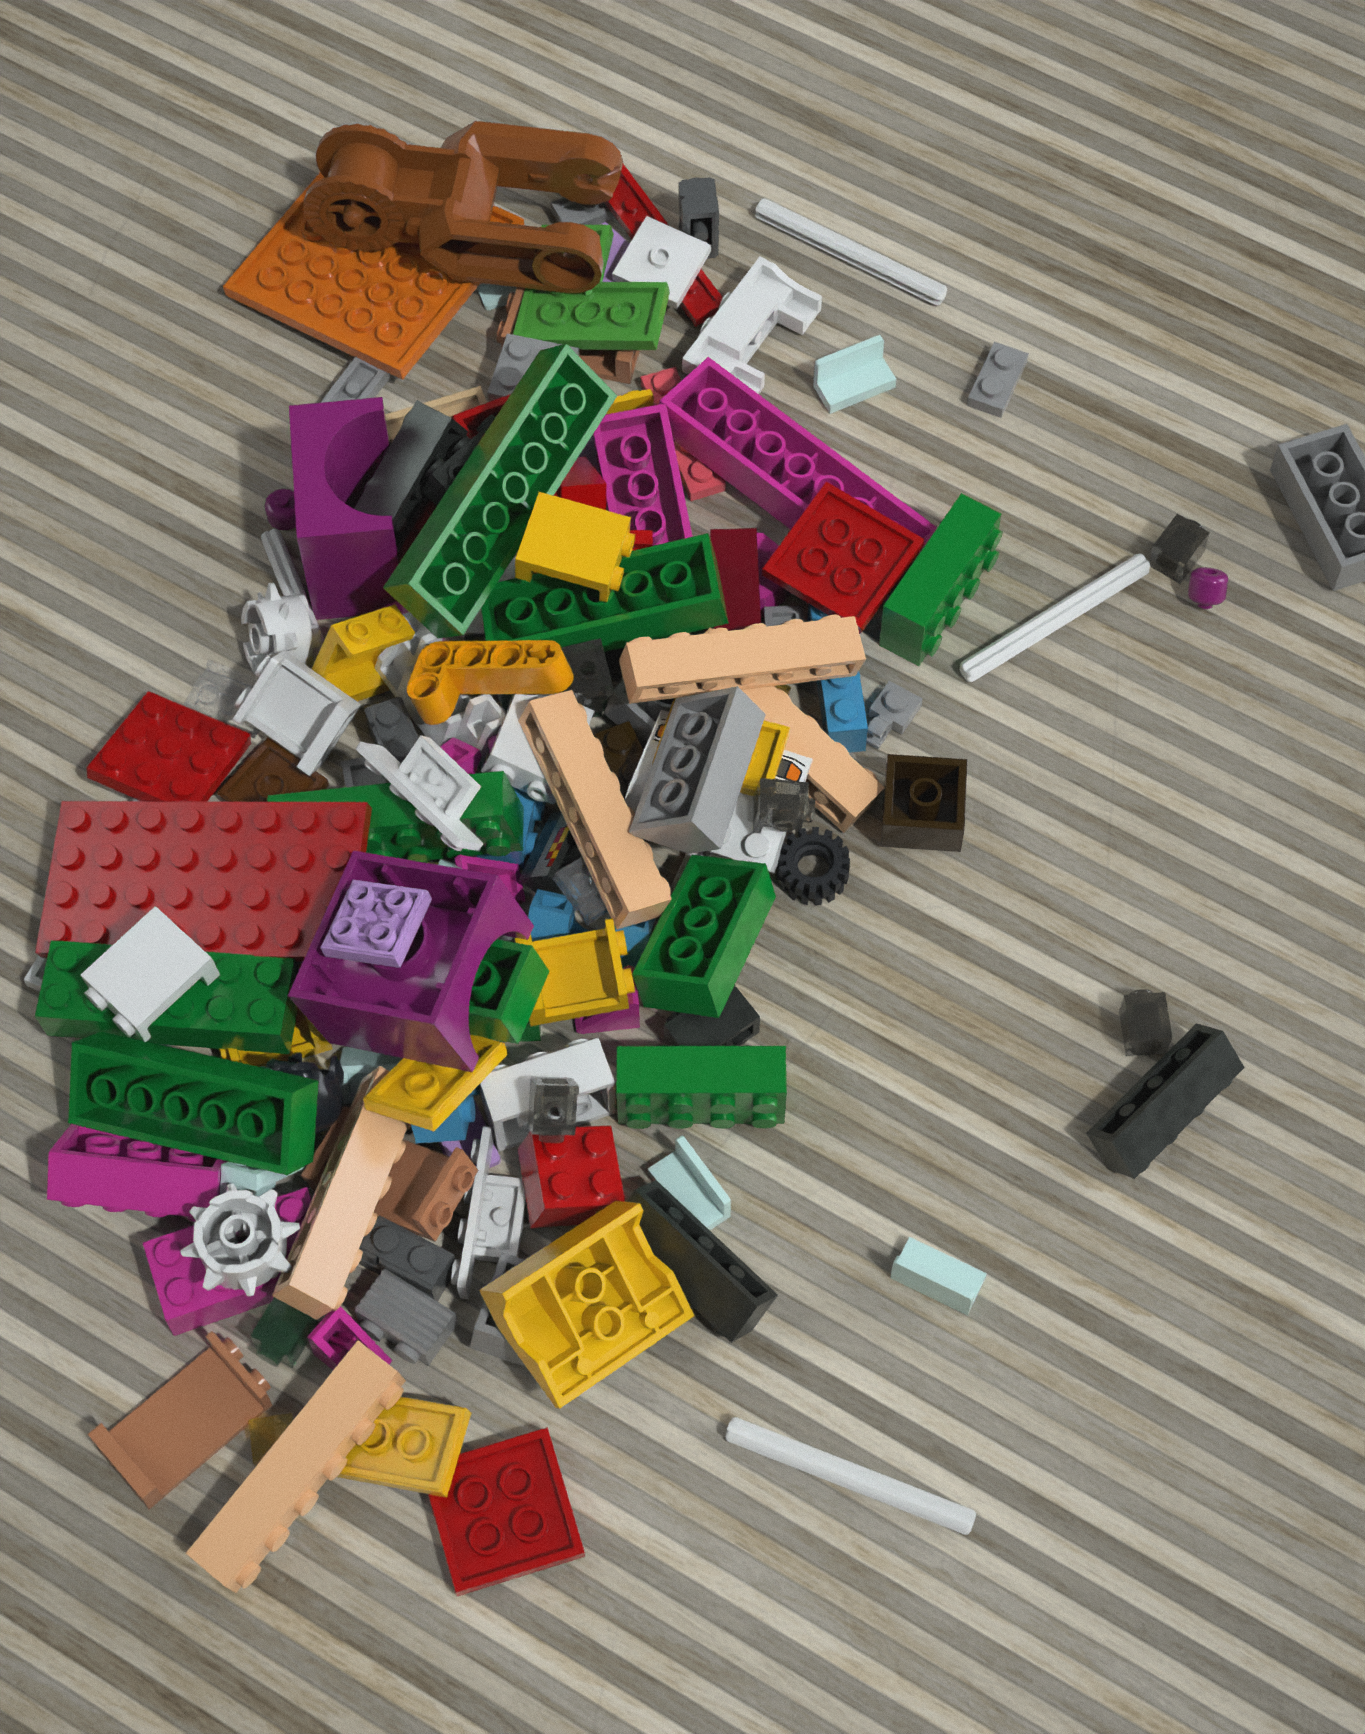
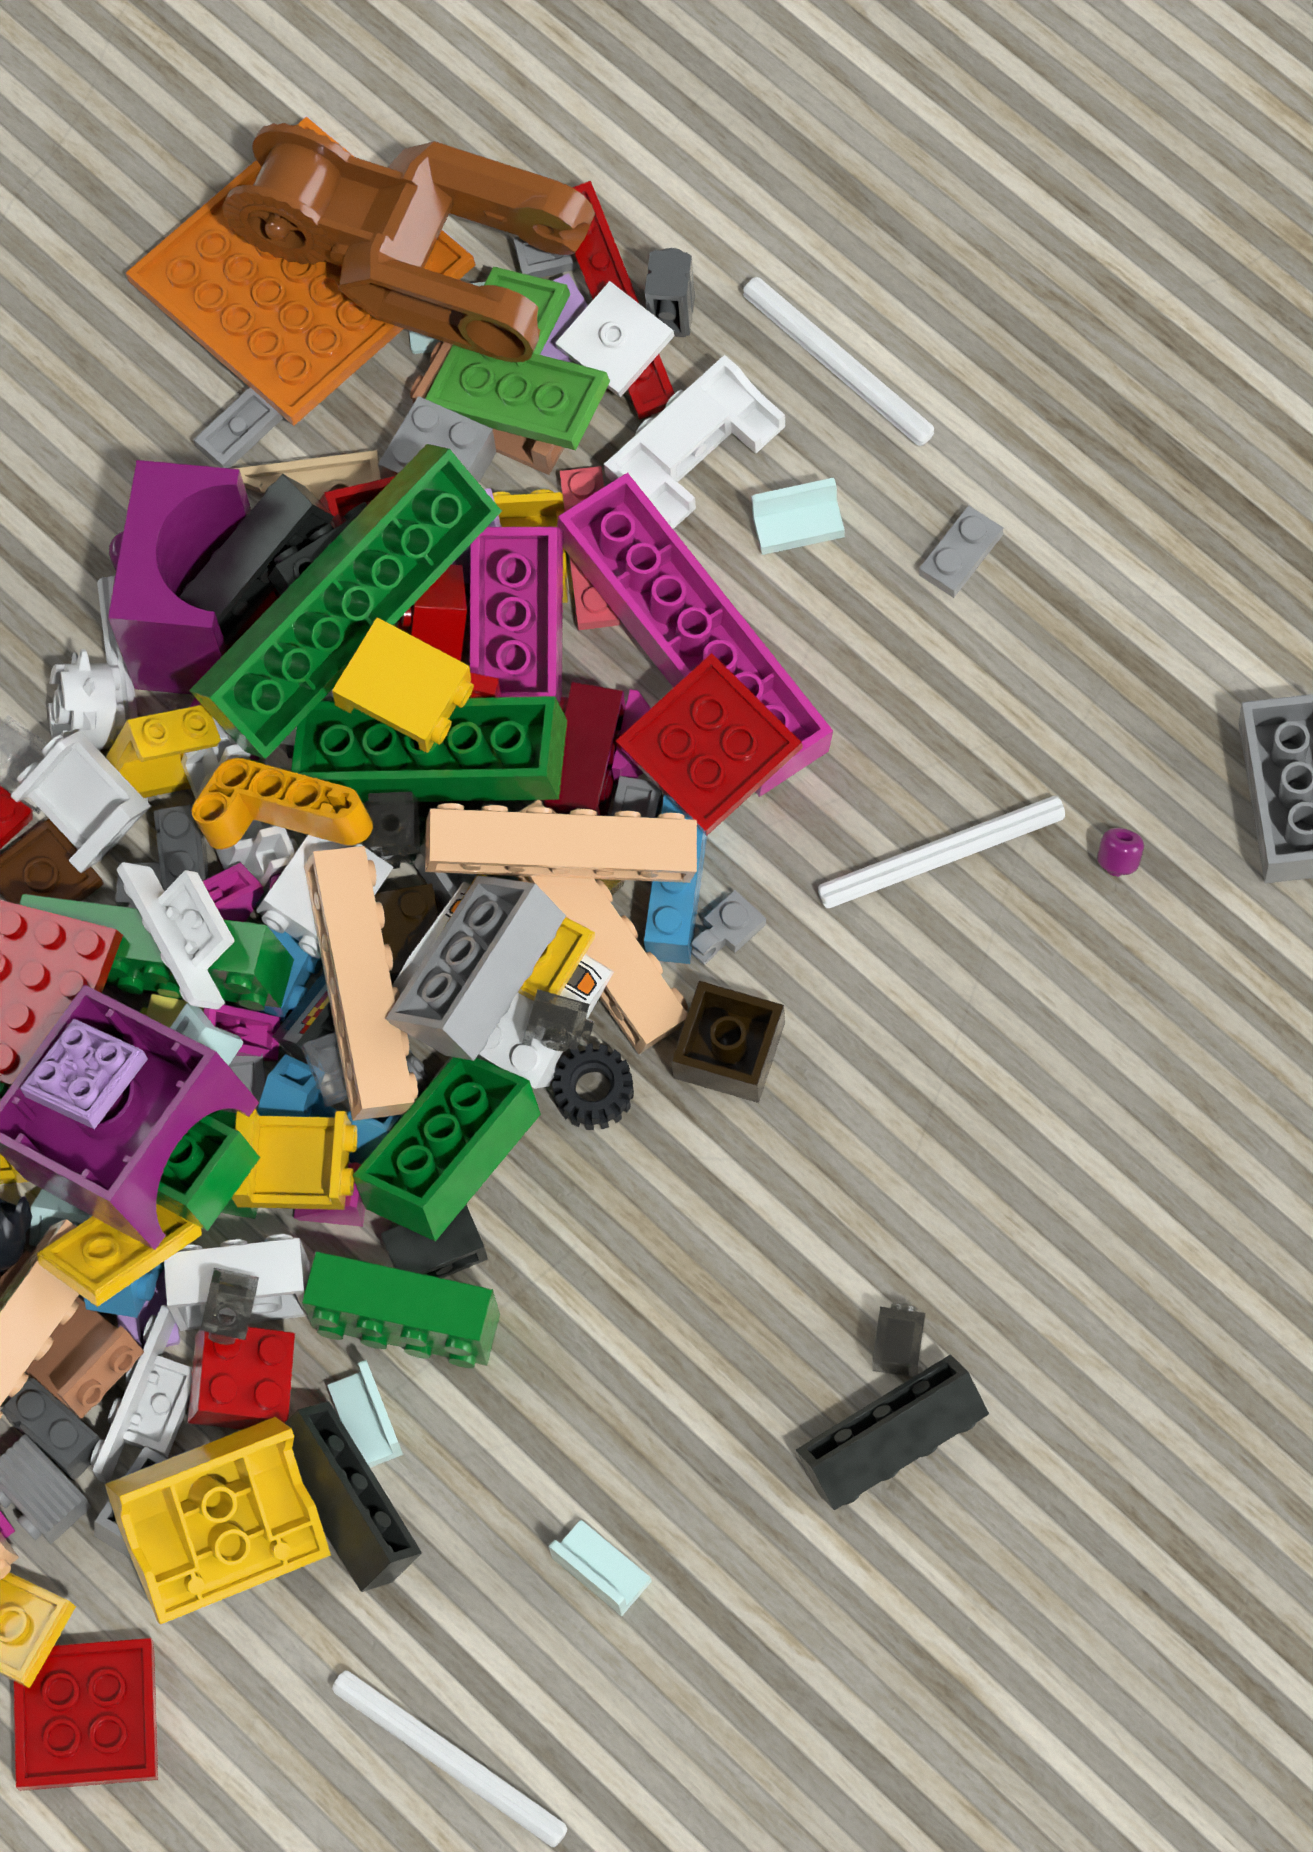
camera: 20 degrees right, 5 degrees up
(941, 580) = (819, 786): green brick -> none
(1179, 548) = (1102, 798): clear smoke brick -> none

